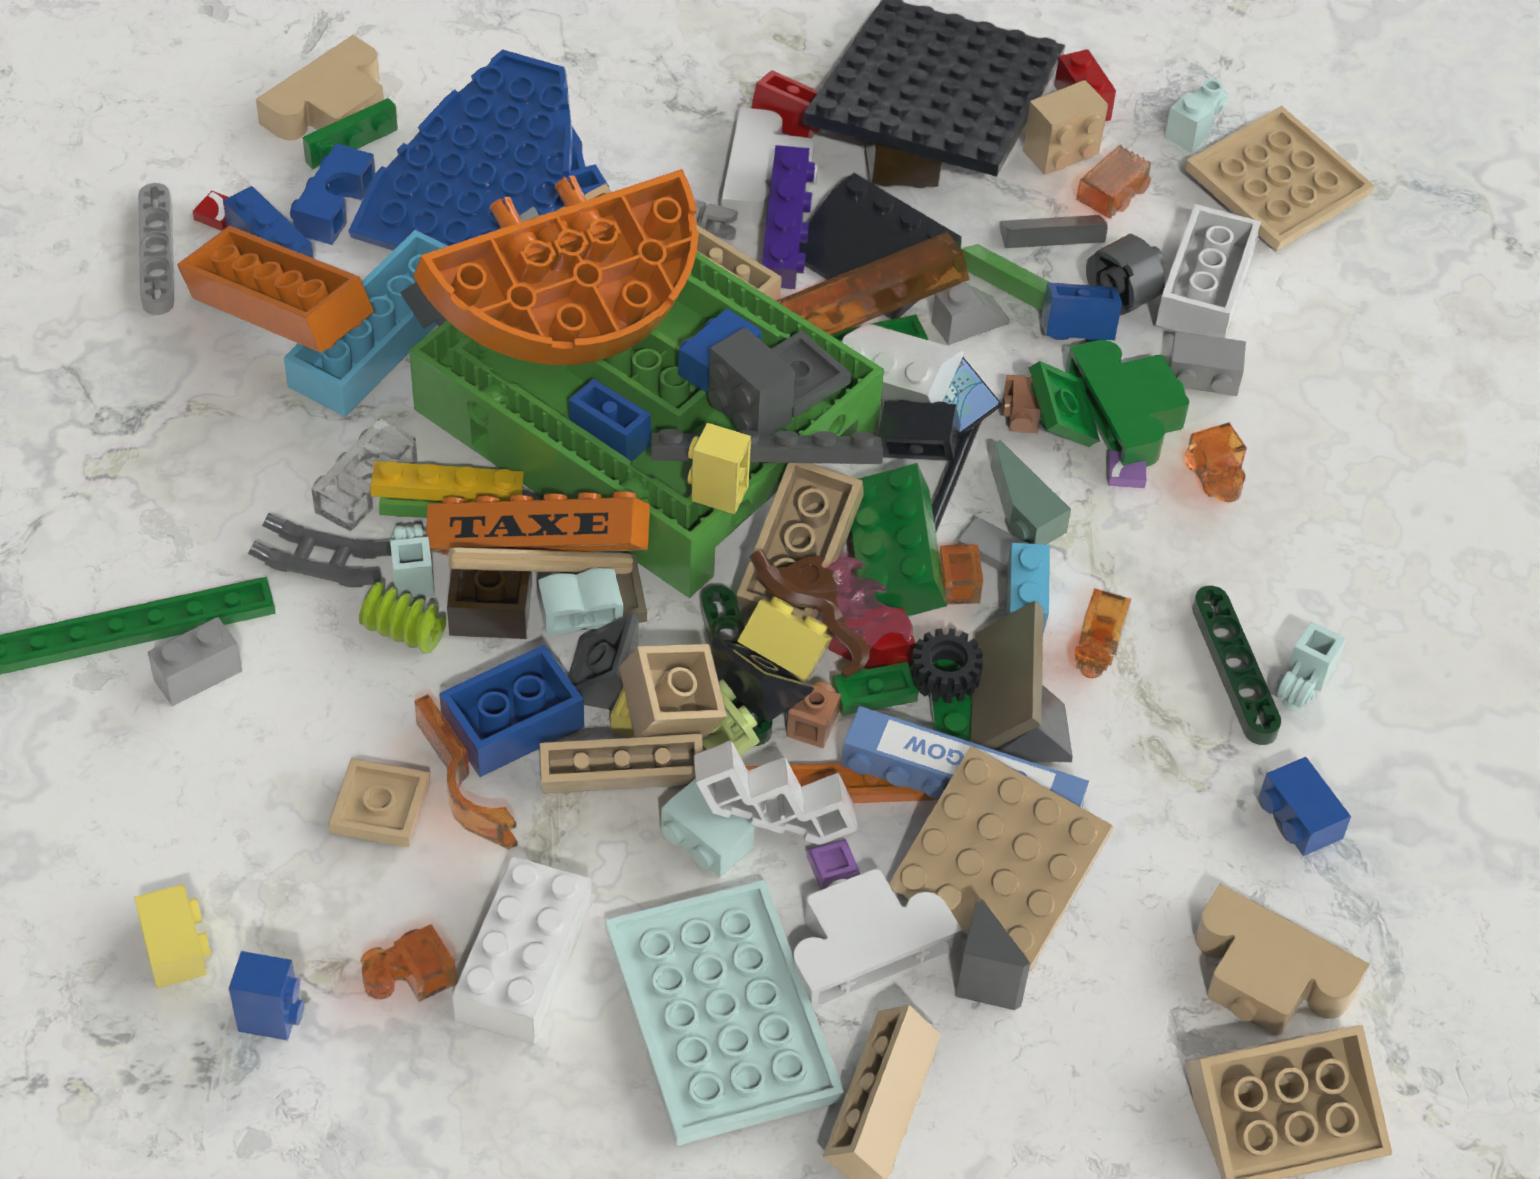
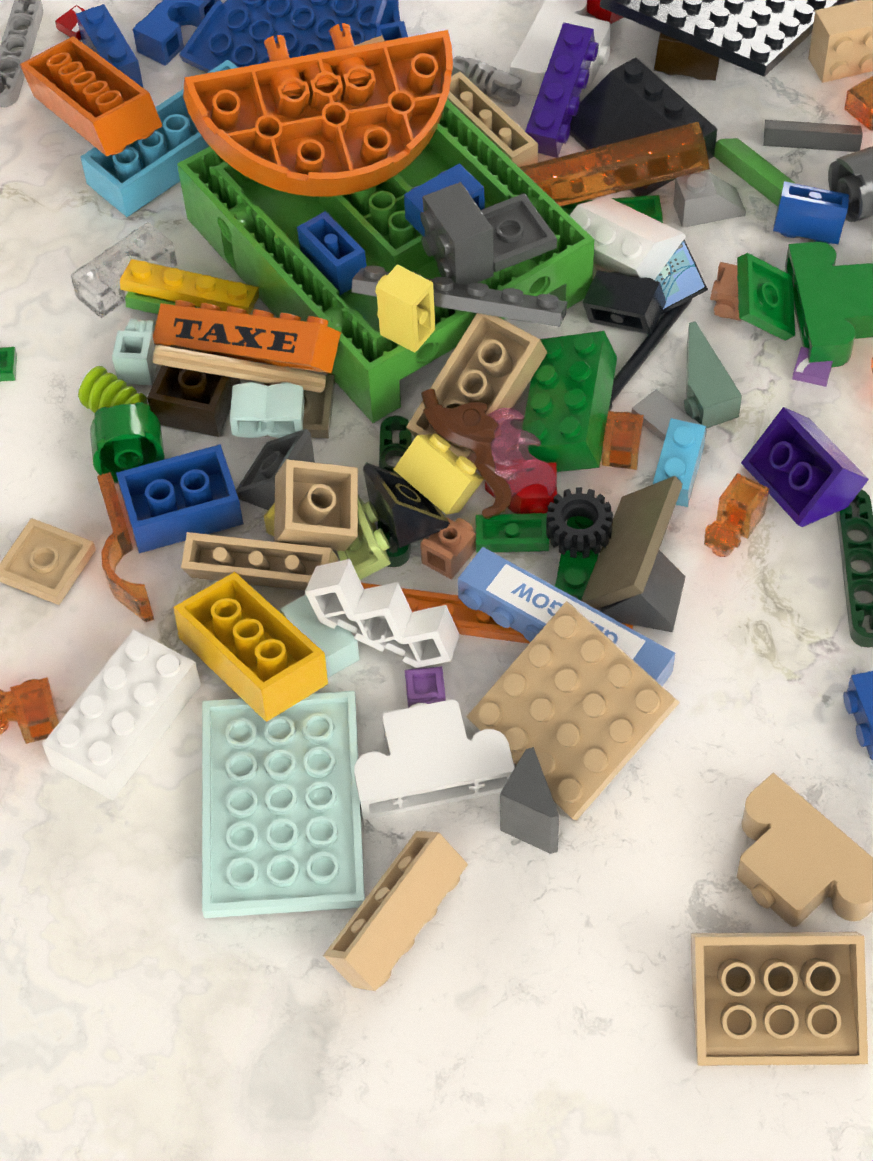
camera: 20 degrees right, 5 degrees up
(307, 540) = (59, 320): dark grey piece -> none
(433, 656) = (125, 438): none -> green brick
(644, 851) = (251, 646): none -> yellow brick
(1157, 573) = (803, 469): none -> dark purple slope

